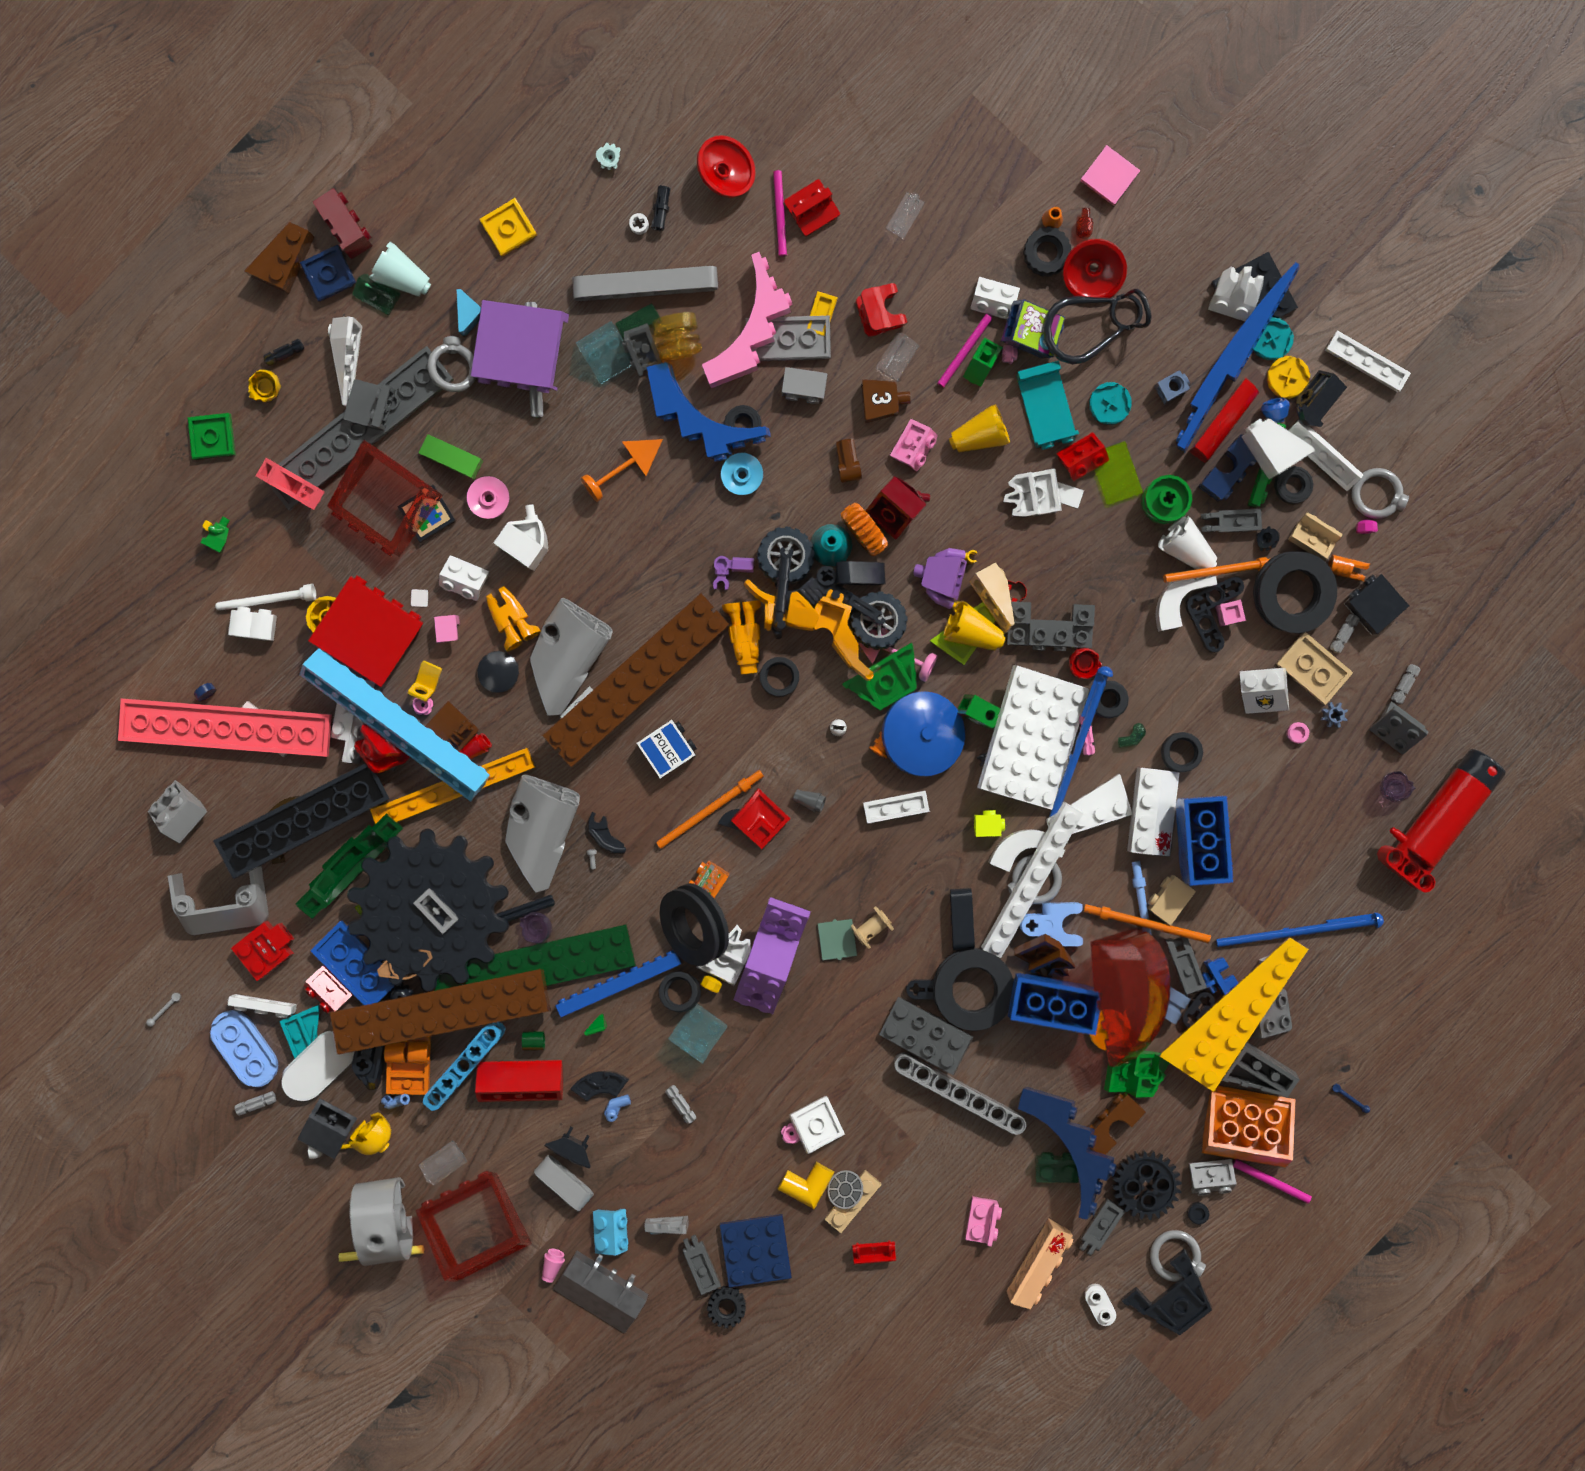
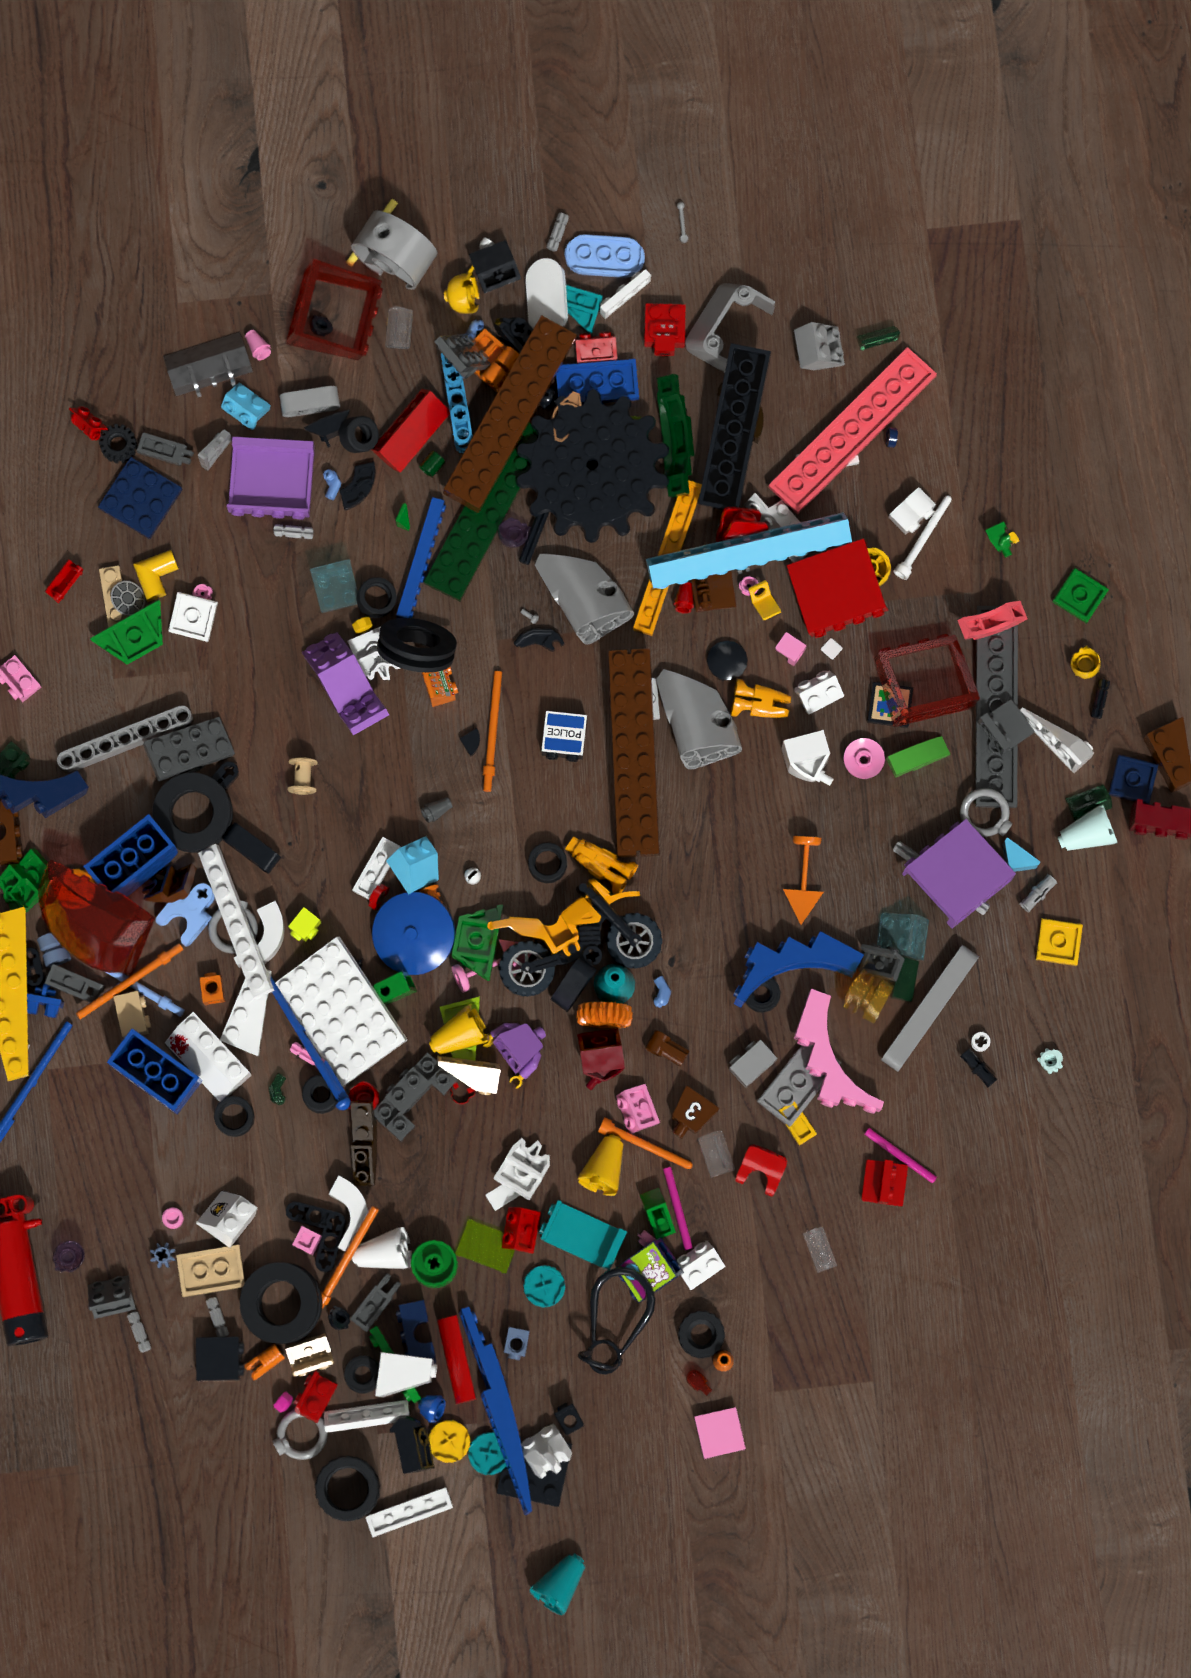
camera: 125 degrees right, 10 degrees down
(129, 771) = (878, 337): none -> clear green slope
(422, 1090) = (463, 354): none -> dark grey plate
(429, 911) = (590, 464): light grey slope -> none
(482, 274) = (1038, 893): none -> light grey pin
(493, 1227) = (321, 326): none -> black animal
(550, 1111) = (348, 438): none -> black tyre
(652, 1159) = (271, 477): none -> medium lavender panel
(730, 1347) = (88, 422): none -> red hinge
(731, 160) = (964, 1151): red dish -> none
(736, 464) = (728, 951): medium azure dish -> none
(738, 564) = (667, 892): medium lavender bar -> none
(760, 818) = (454, 761): red plate -> none
(805, 500) = (663, 994): none -> medium blue arm
(837, 939) = (316, 744): sand green piece -> none
(869, 776) = (415, 864): none -> medium azure slope
(871, 1158) = (133, 635): none -> green wing
(915, 789) = (375, 895): none -> red piece
(947, 455) = (608, 1127): none -> orange piece
(1098, 282) = (651, 1347): red dish -> none
(1107, 852) = (216, 997): none -> orange brick
(1119, 632) = (364, 1143): none -> dark brown slope
(1193, 307) = (565, 1410): none -> black bracket
(1326, 200) = (559, 1584): none -> teal cone
(1342, 505) = (315, 1397): none -> red bracket
(1409, 403) = (329, 1470): none -> black tyre

